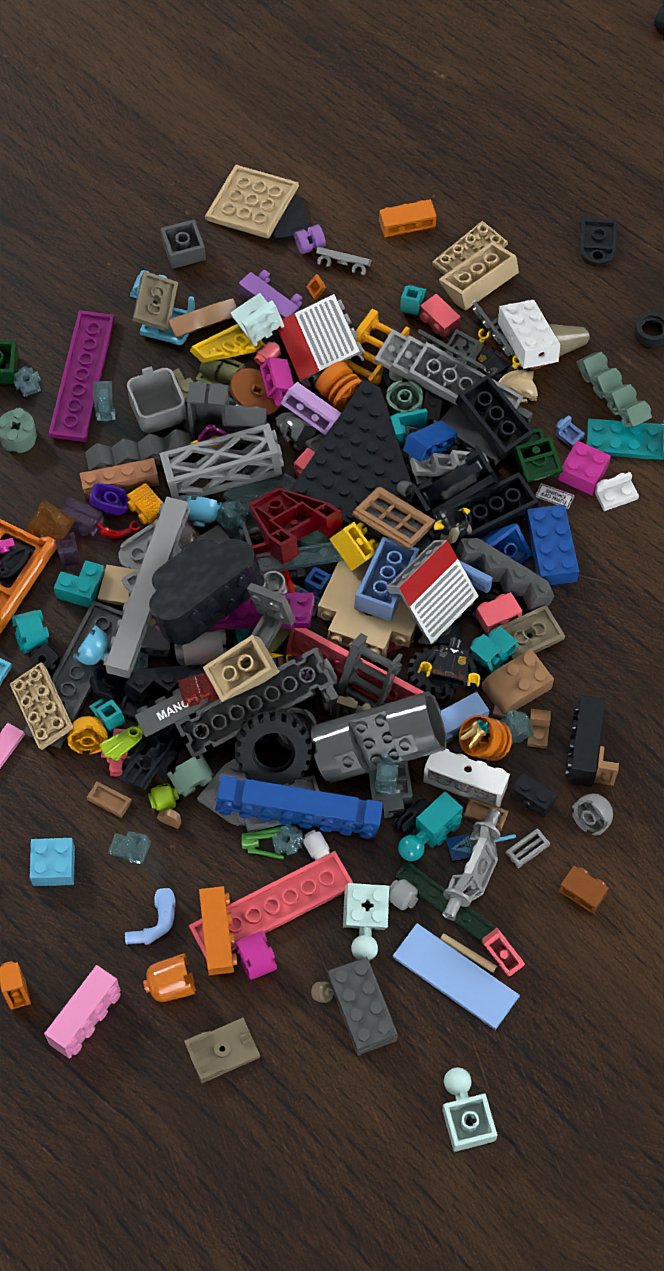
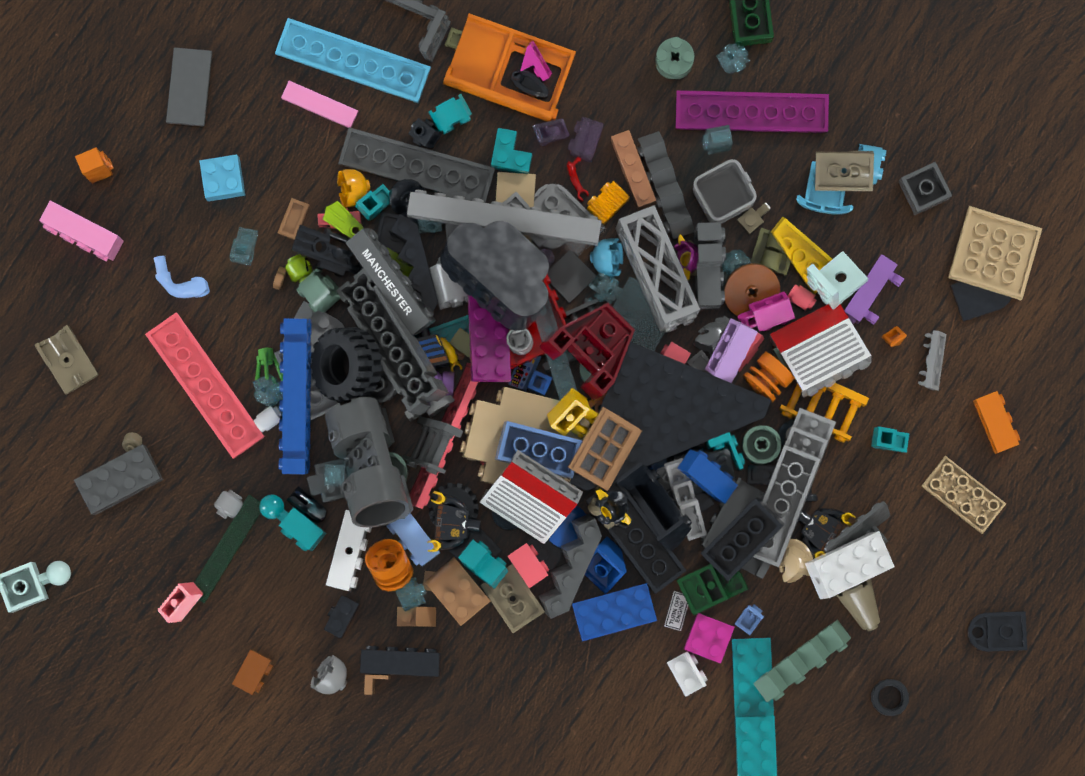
camera: 85 degrees right, 20 degrees up
(41, 706) = (372, 139): tan tile -> none
(50, 522) = (573, 111): clear orange slope -> none
(93, 647) = (437, 176): medium azure cylinder -> none
(109, 498) = (605, 164): dark purple piece -> none
(169, 979) = (121, 304): orange cylinder -> none
(196, 689) = (393, 285): clear red brick -> none
(202, 318) = (835, 225): medium nougat slope -> none
(216, 930) = (169, 338): orange brick -> none
(241, 668) = (408, 321): tan slope -> none
(256, 955) = (151, 376): dark pink brick -> none
(274, 610) = (447, 334): dark grey bracket -> none
(315, 236) = (951, 321): medium lavender wheel -> none
(348, 705) = (406, 430): dark tan plate -> none
(357, 917) = (197, 472): light aqua brick -> none
(404, 488) = (642, 455): dark grey hinge -> none
(439, 316) = (874, 470): coral brick -> none
(456, 976) = (159, 562): light blue tile -> none
(460, 344) = (826, 492): dark grey bracket -> none
(461, 848) = (285, 555): piece -> none
(468, 953) = (184, 567): tan bar -> none
(478, 579) = (559, 536): medium blue tile -> none
(478, 730) = (389, 556): pearl gold piece -> none
(478, 810) = (320, 574): medium nougat tile -> none
(478, 869) = (260, 573): light grey plate -> none
(479, 275) = (930, 507): tan slope -> none
(514, 858) = (283, 619): light grey tile -> none

